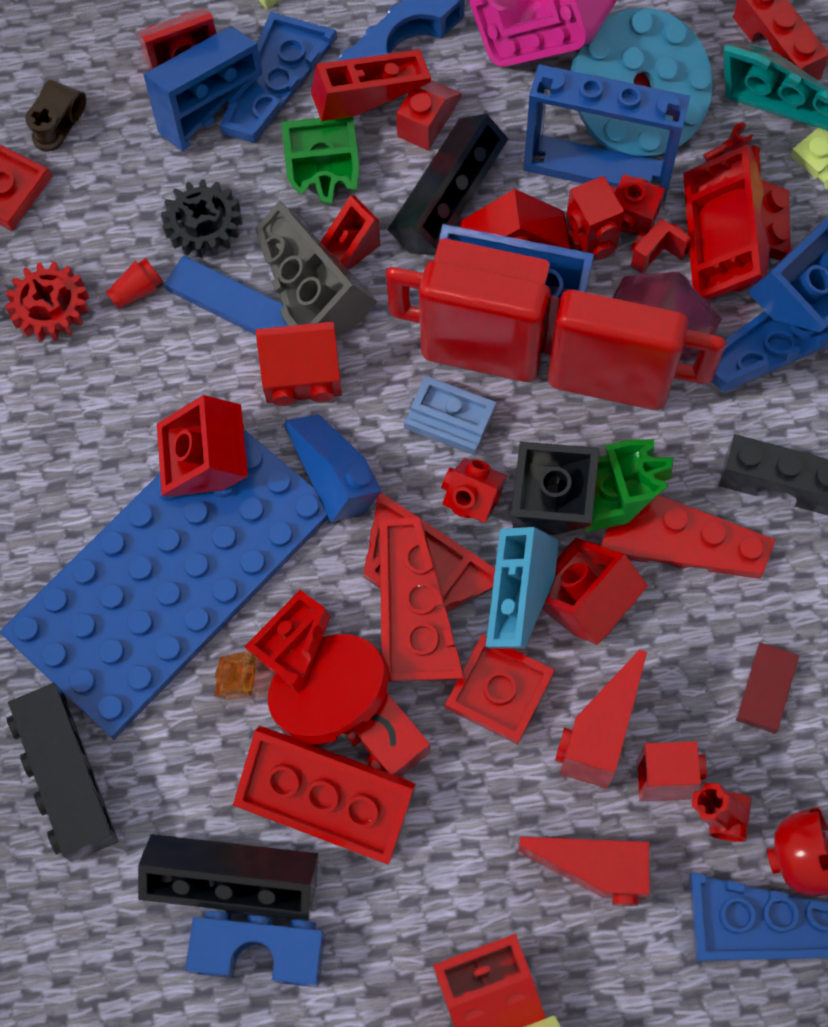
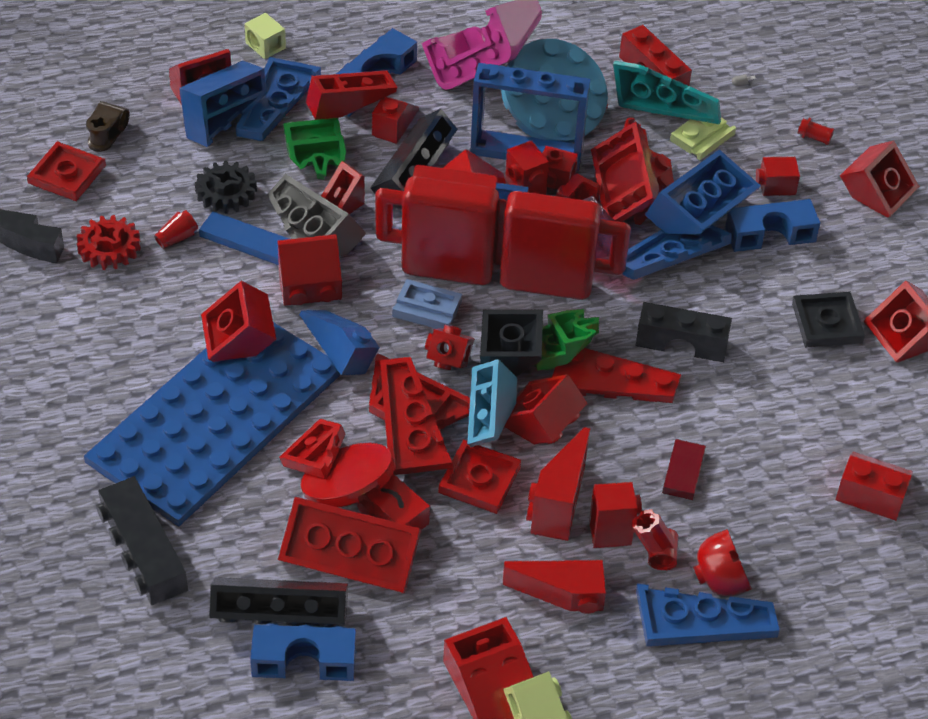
camera: 10 degrees left, 20 degrees down
(235, 675) = (274, 475): clear orange plate -> none

